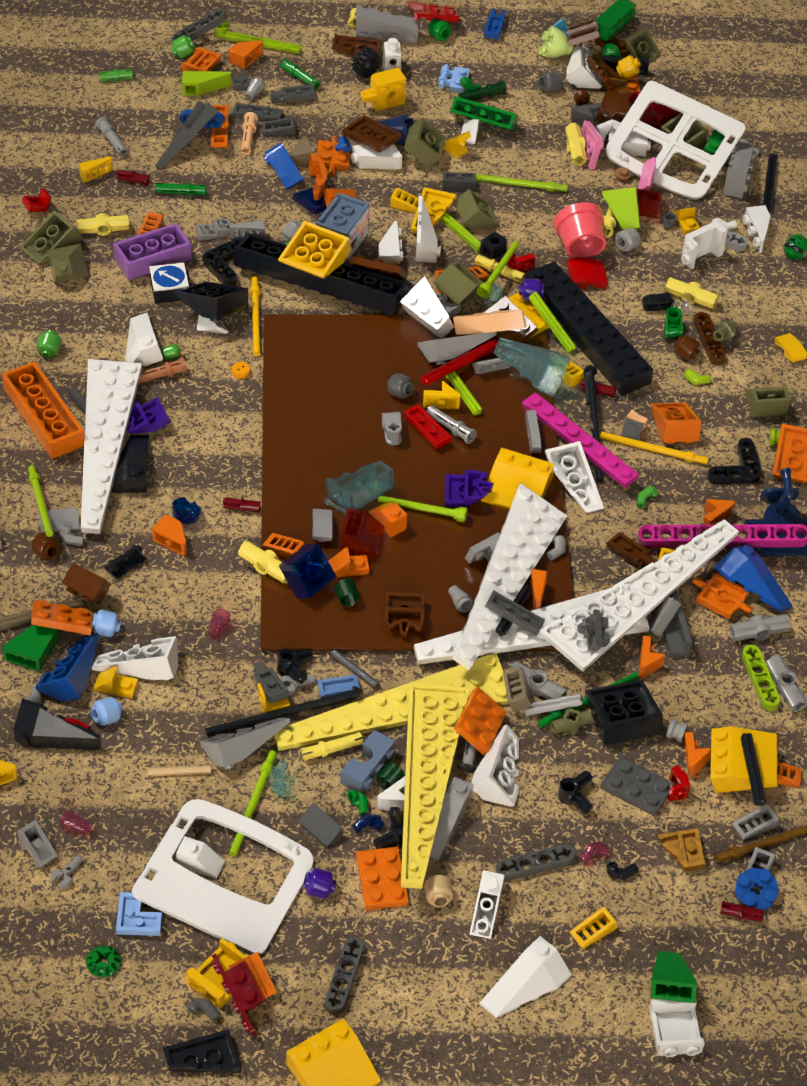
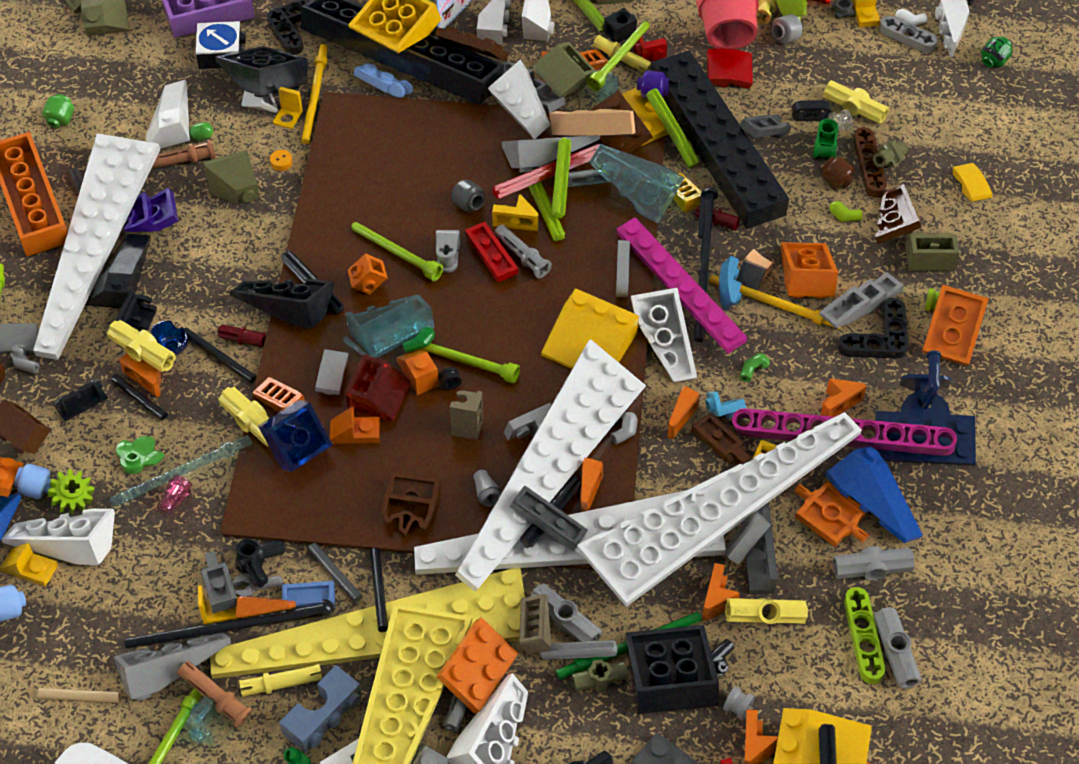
camera: 10 degrees right, 5 degrees up
(137, 628) = (60, 491): none -> lime gear
(153, 499) = (136, 312): none -> black hinge
(169, 516) = (141, 345): none -> light yellow piece
(170, 556) = (139, 397): none -> black piece
(181, 598) = (138, 454): none -> bright green plate
(208, 386) = (232, 178): none -> olive slope
(229, 522) = (220, 356): none -> black bar
(238, 326) = (290, 105): none -> yellow bracket
(251, 589) = (226, 450): none -> clear light blue bar
(283, 476) = (293, 303): none -> black wedge
(290, 460) = (304, 273): none -> black axle
(295, 763) = (224, 701): none -> nougat pin
(303, 695) = (253, 606): none -> orange slope
(310, 301) = (383, 80): none -> light blue hinge
(334, 450) = (367, 274): none -> orange brick
(347, 592) = (343, 467): dark green piece -> none
(383, 443) = (431, 269): none -> lime piece
(387, 496) = (420, 341): none -> green arm
(389, 775) = (344, 732): dark green piece -> none
(393, 677) = (378, 586): none -> black bar
(415, 522) = (449, 378): none -> black bush
(436, 546) = (467, 416): none -> dark tan hinge
(466, 489) = (522, 339): dark purple plate -> none
(473, 367) = (561, 178): none -> lime axle
(592, 630) = (643, 551): dark grey hips -> none
(599, 530) = (684, 409): none -> orange slope
(617, 439) = (728, 285): none -> dark azure slope
(622, 526) = (726, 408): none -> medium azure bracket
(624, 316) = (765, 126): none -> dark grey hinge
(658, 697) = (719, 655): none -> black arm
(676, 666) = (751, 610): none -> light yellow piece
(703, 241) = (880, 37): white panel -> none
(721, 441) = (861, 301): none -> light grey slope
(737, 376) = (896, 215): none -> reddish brown wing

